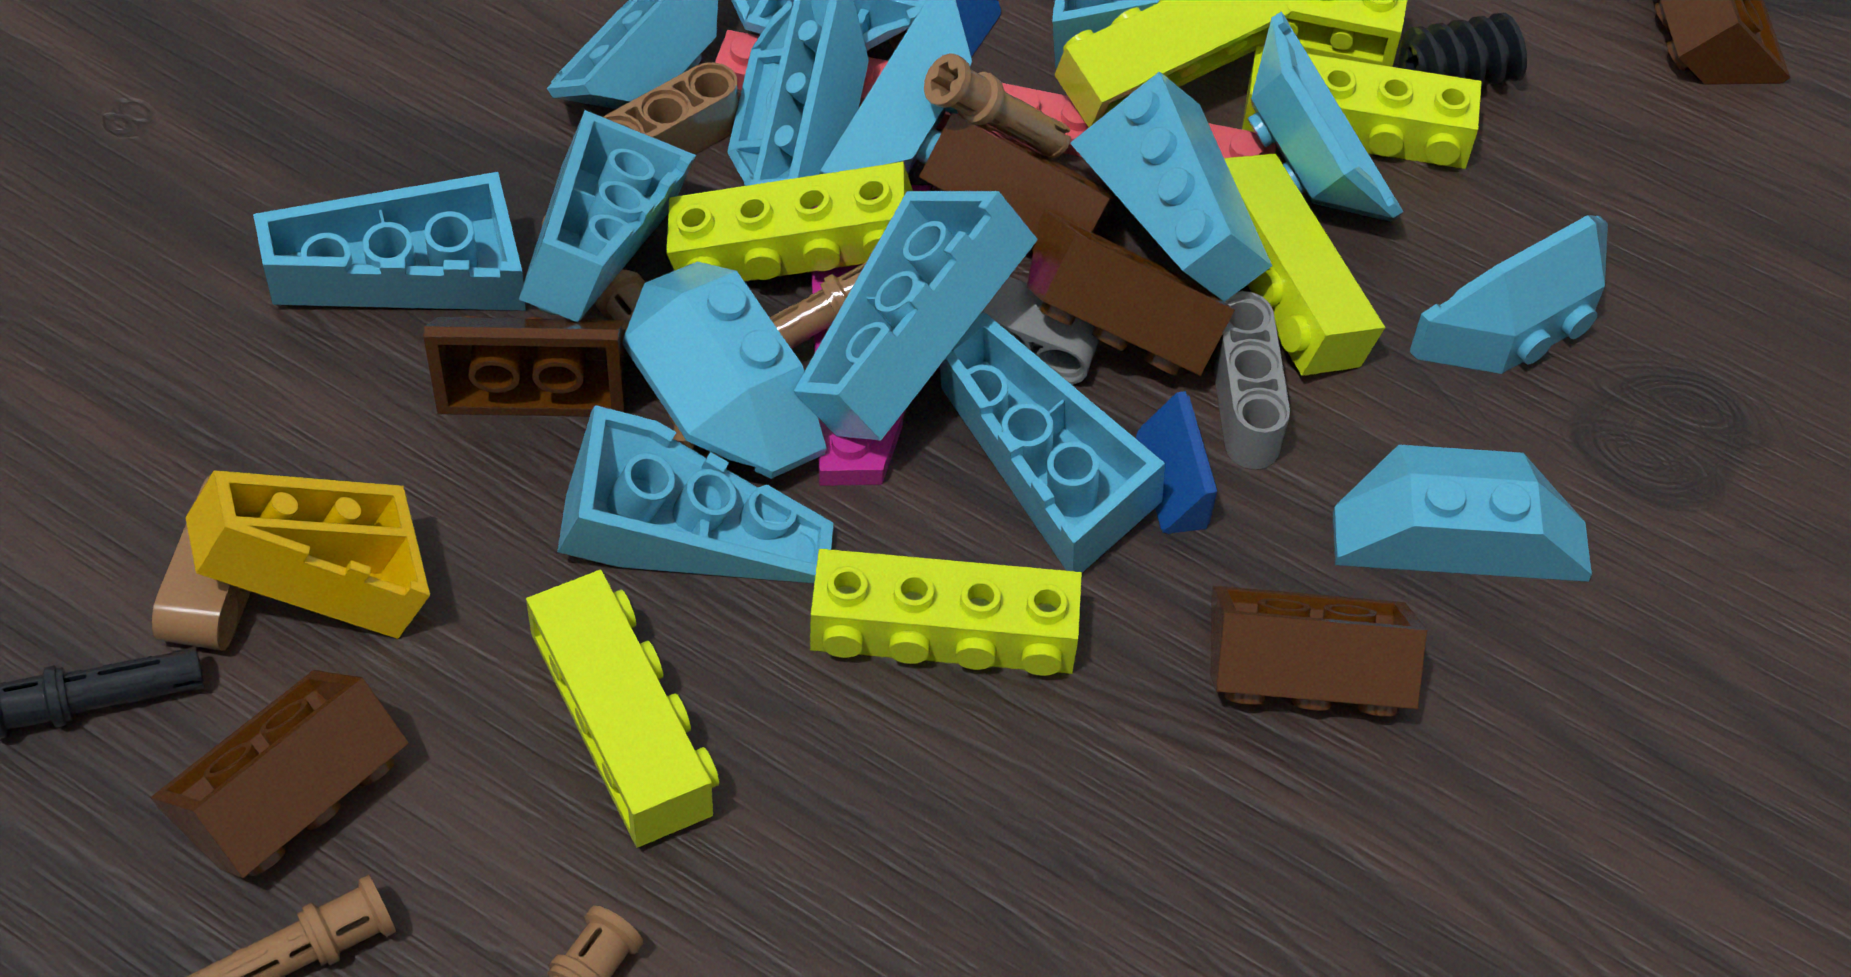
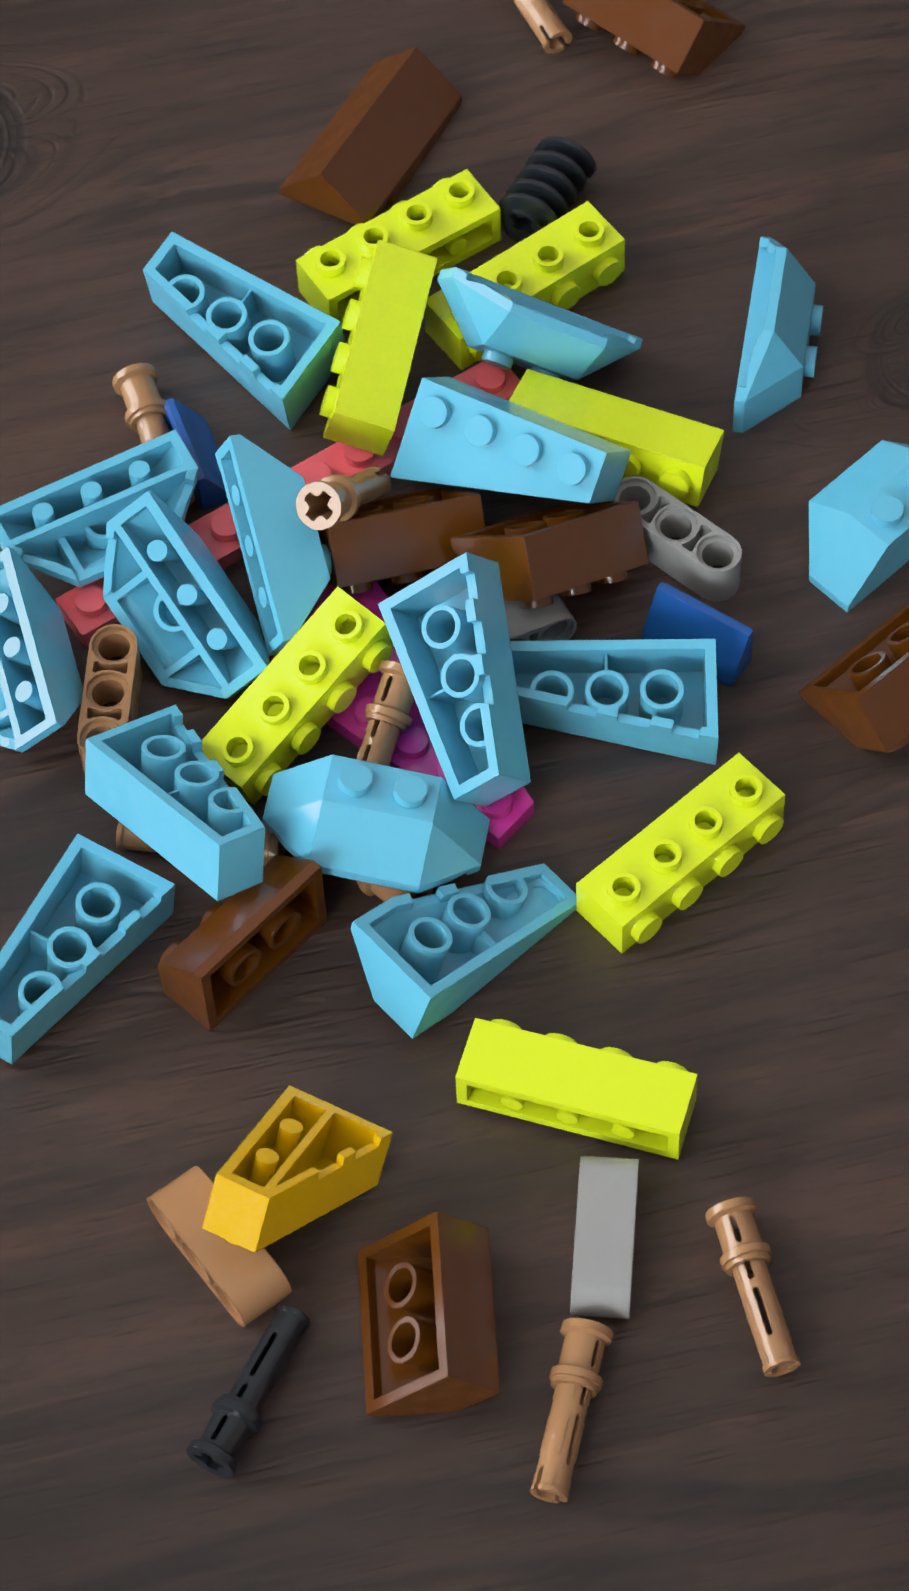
camera: 40 degrees left, 5 degrees up
(490, 846) = (604, 1237): none -> light grey beam

